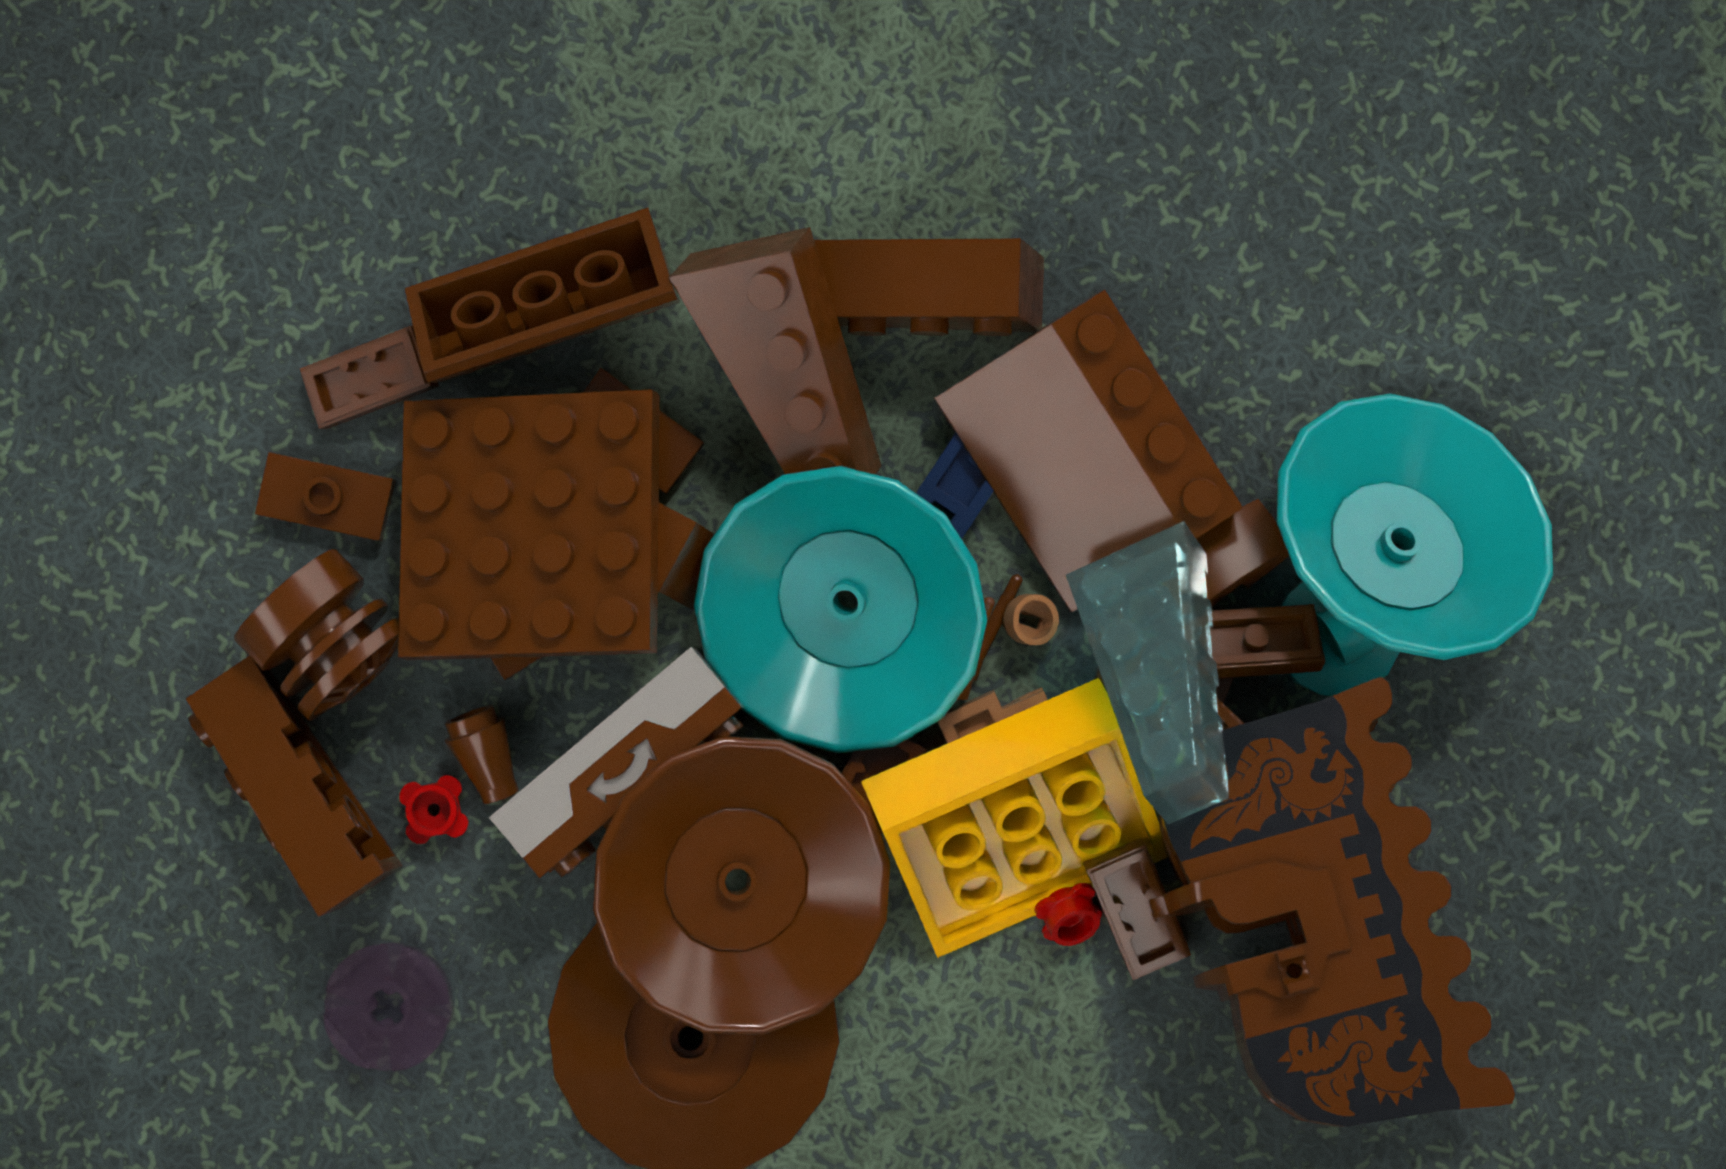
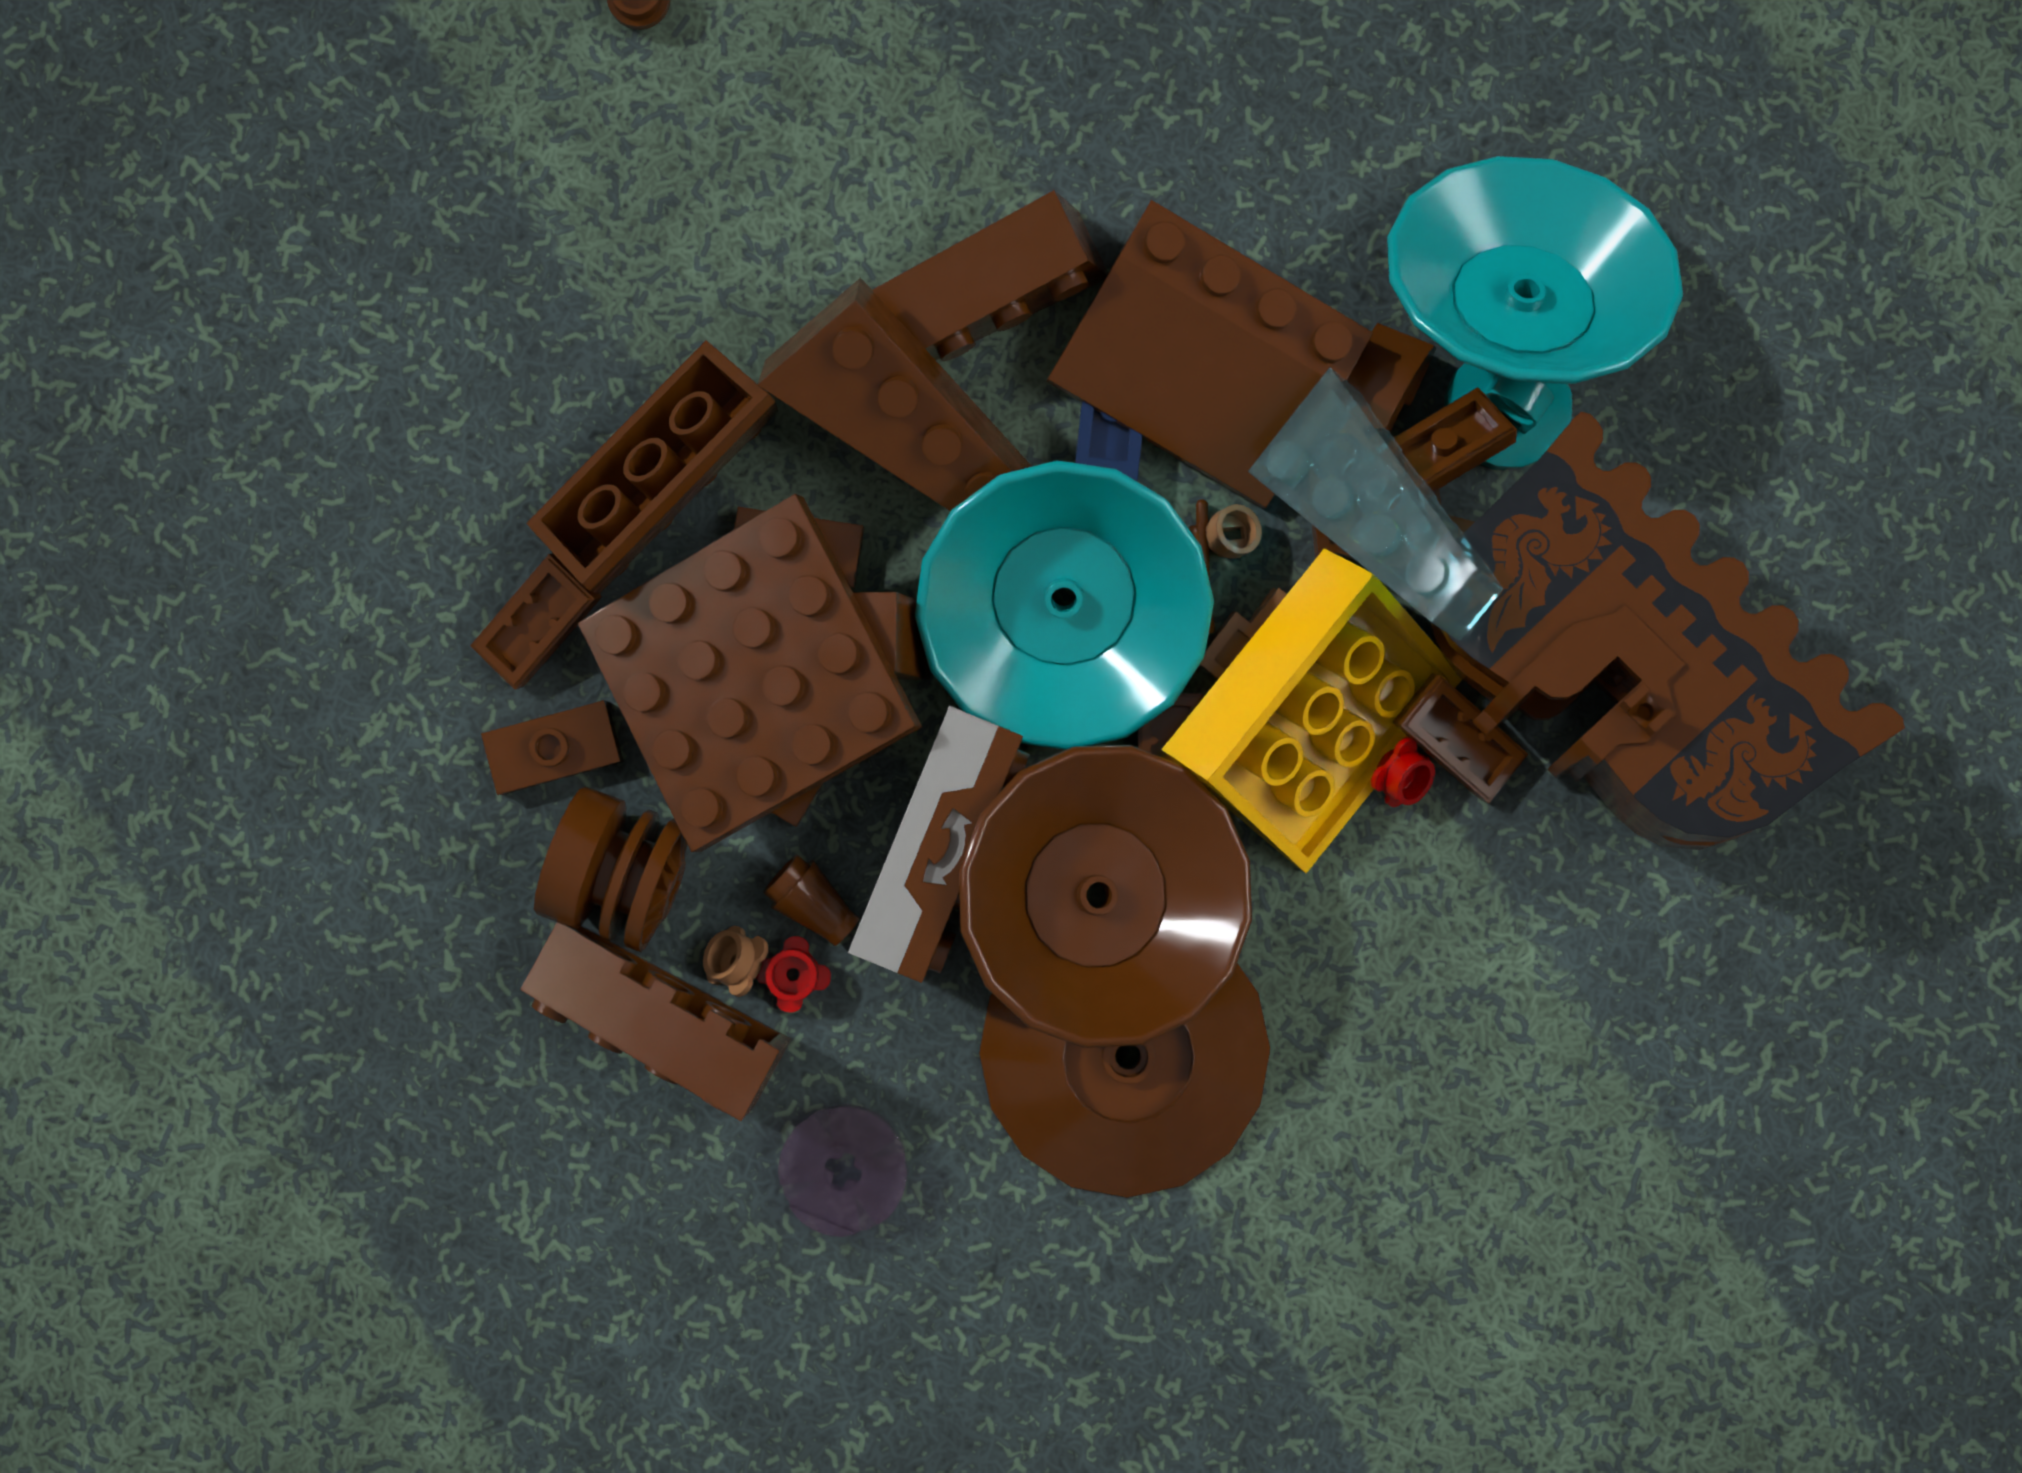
camera: 30 degrees left, 0 degrees up
(388, 770) = (734, 959): none -> medium nougat plate

